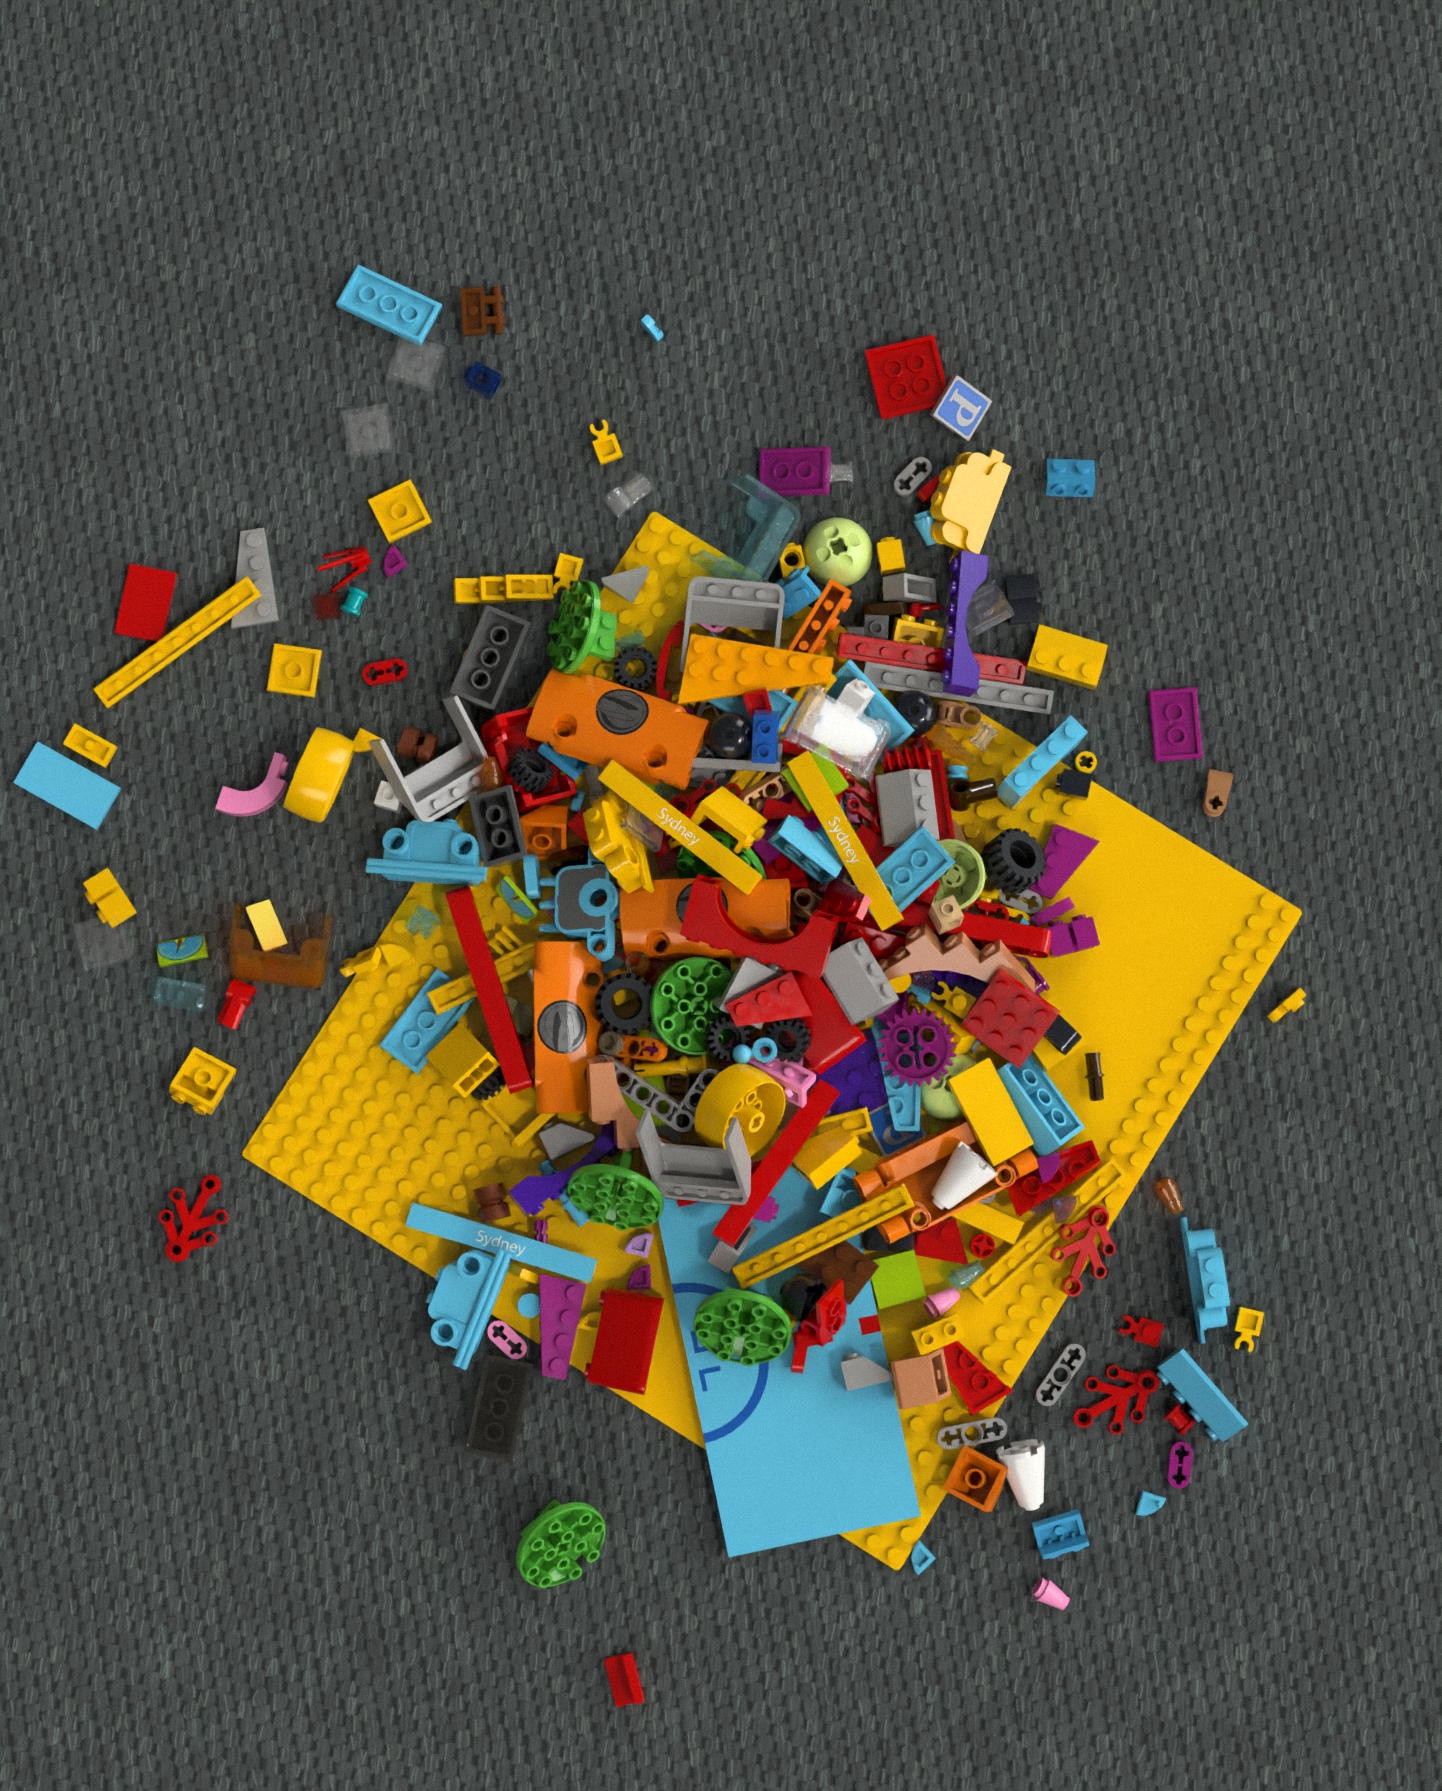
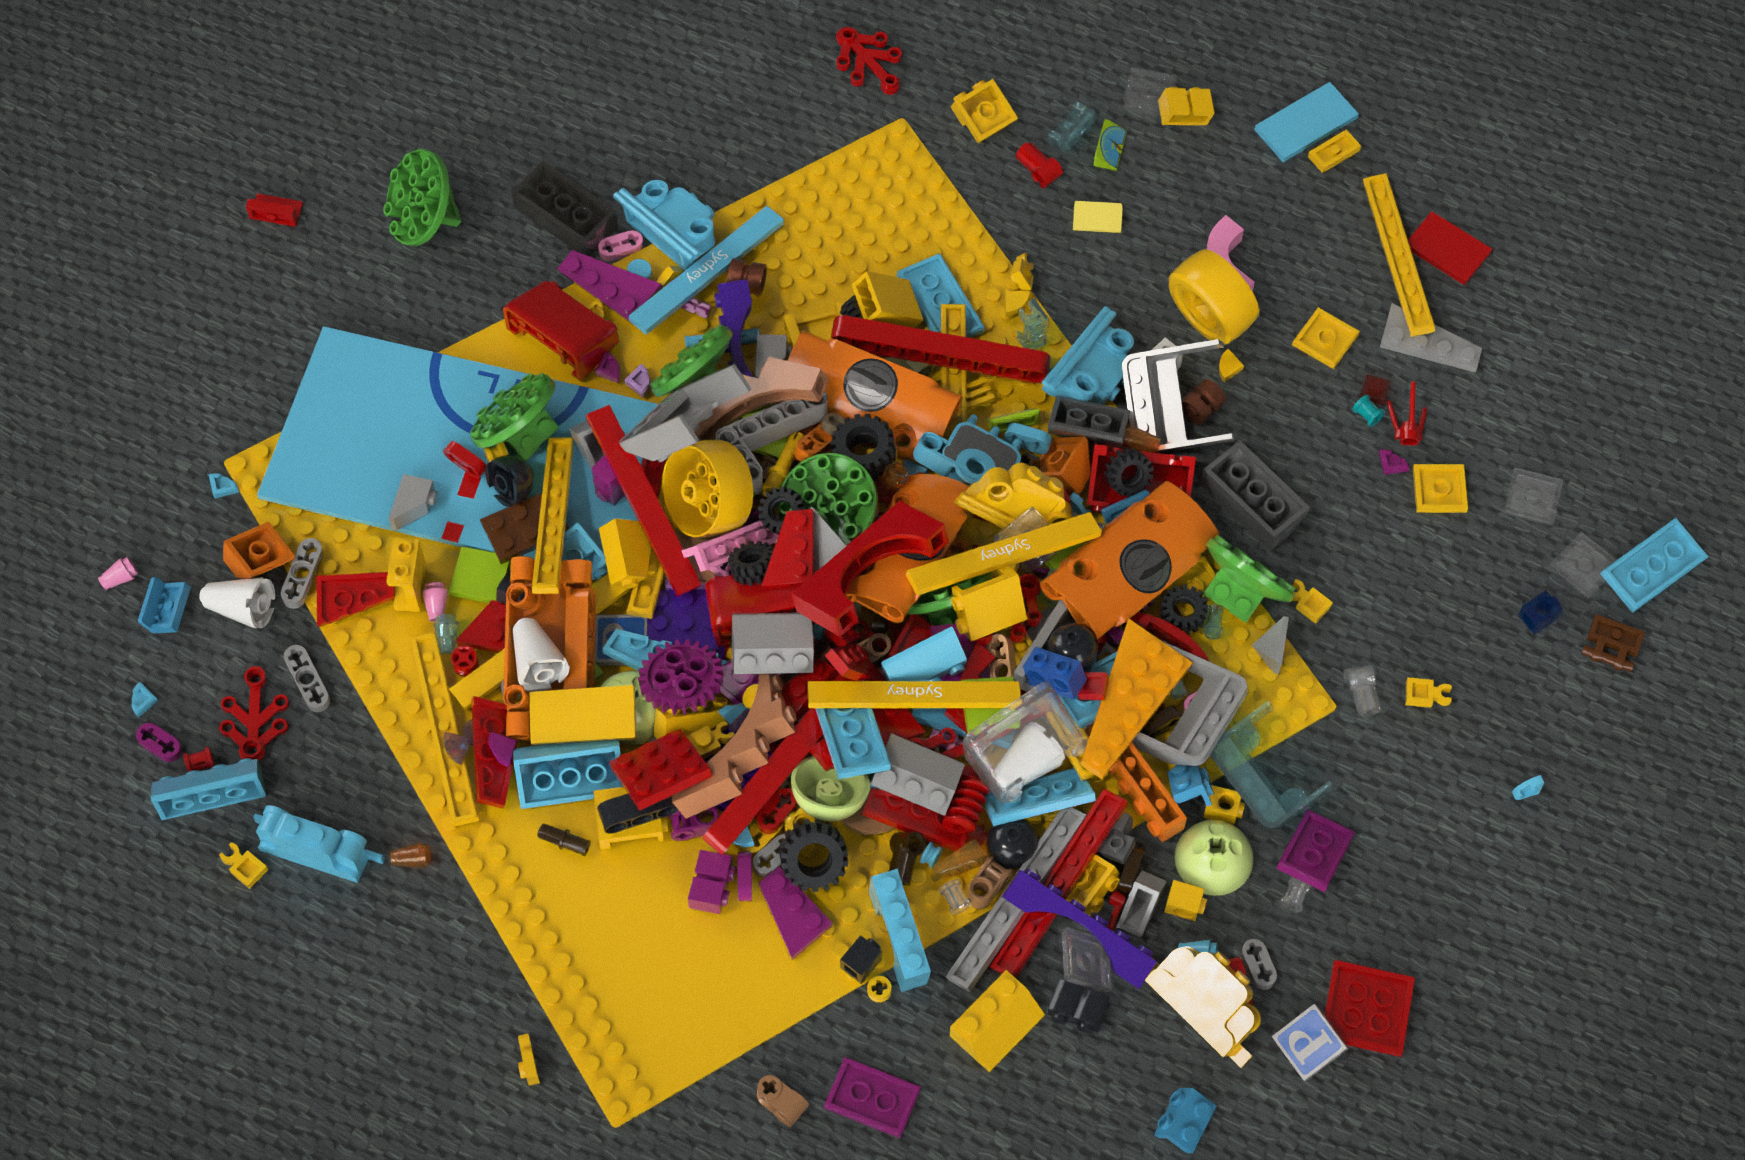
camera: 115 degrees right, 20 degrees down
(300, 971) = (1043, 228): clear orange windscreen -> none
(386, 677) = (1283, 408): red beam -> none
(503, 589) = (1320, 540): yellow slope -> none
(743, 1053) = (759, 513): medium azure plate -> none
(827, 1316) = (480, 486): red piece -> none
(856, 695) = (1053, 782): white brick -> none
(920, 1378) = (372, 539): nougat slope -> none
(946, 914) = (792, 751): tan brick -> none
(1085, 1248) = (408, 751): red plant -> none
(1145, 1330) = (299, 773): red plate -> none

